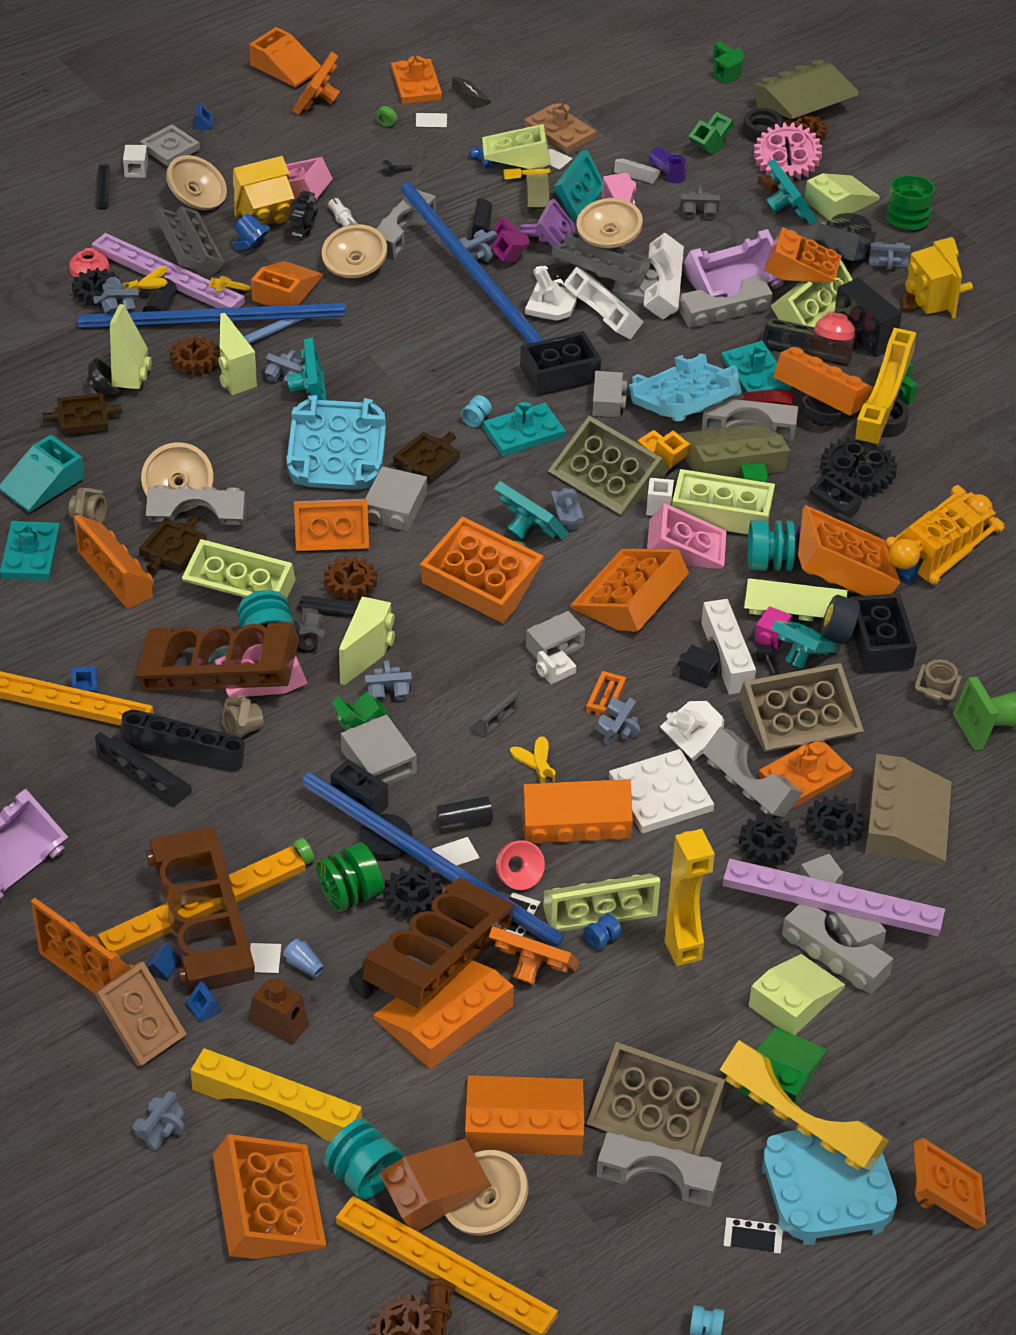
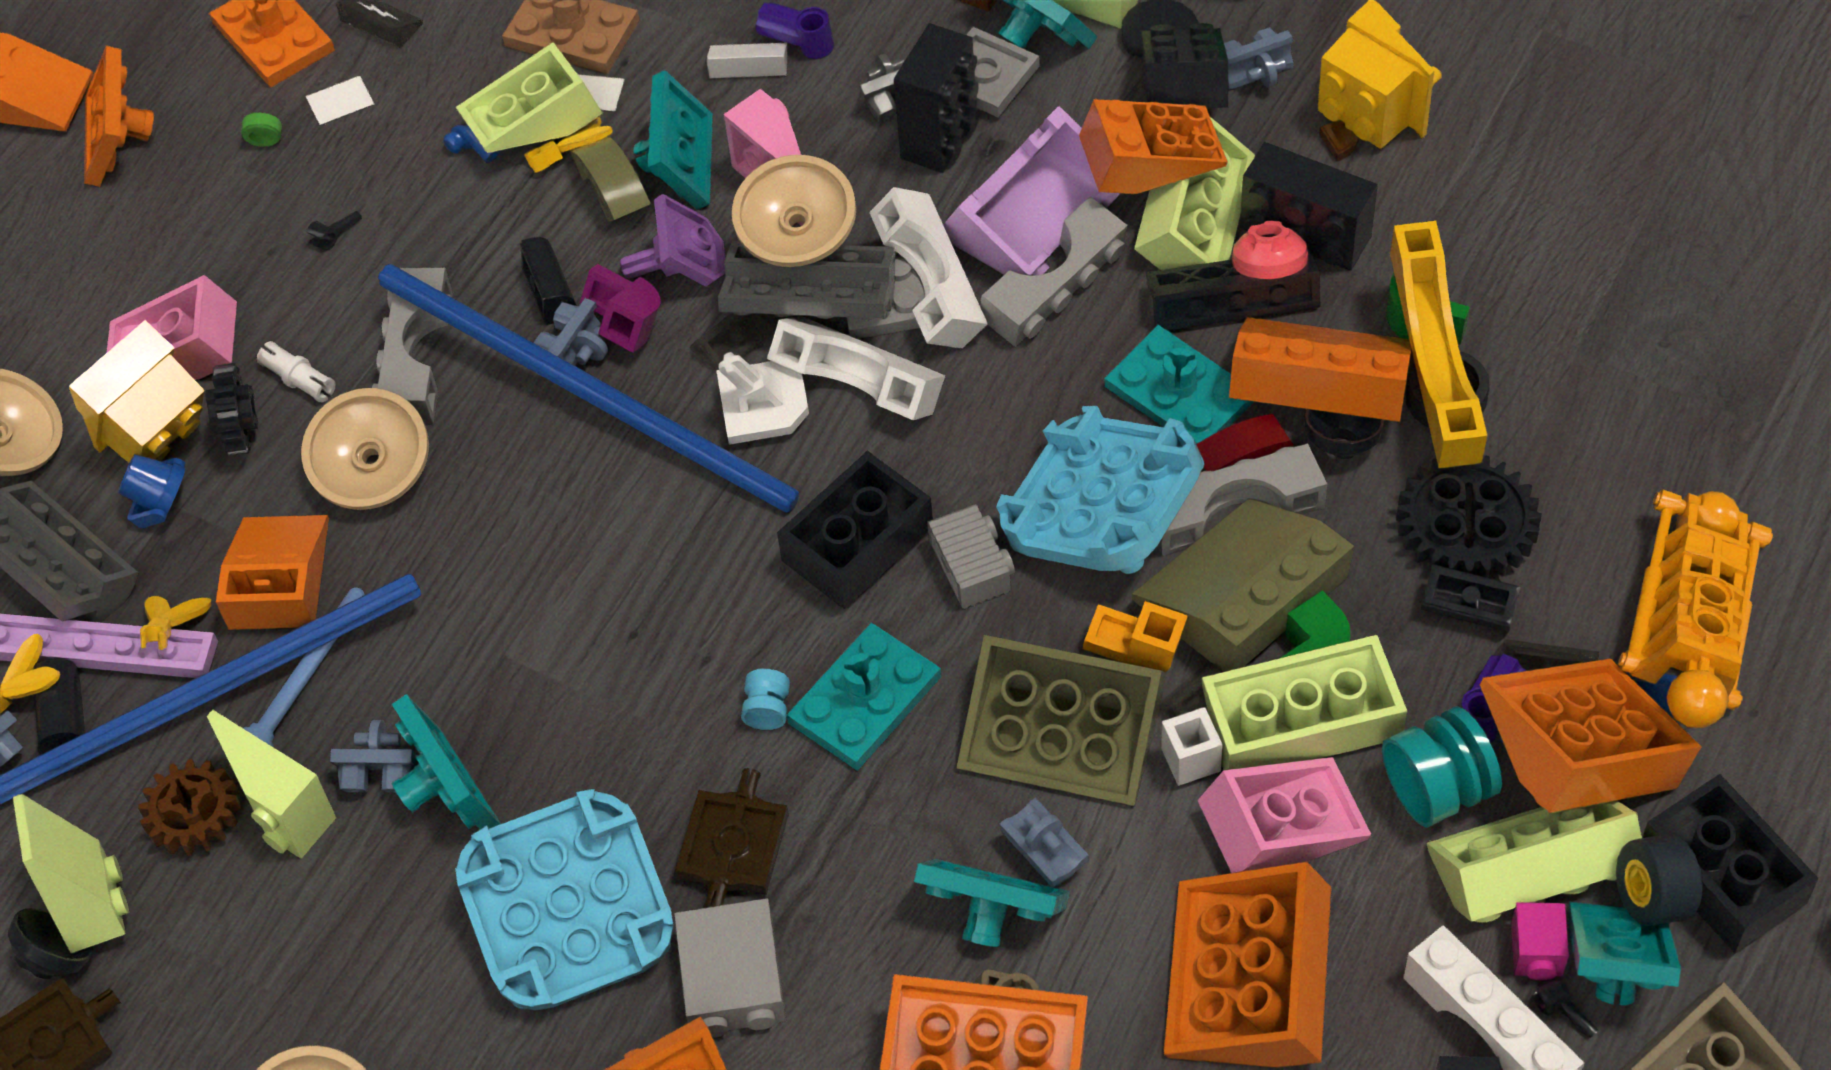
camera: 20 degrees left, 10 degrees up
(712, 208) = (936, 98): none -> black brick
(749, 213) = (999, 71): none -> light grey plate

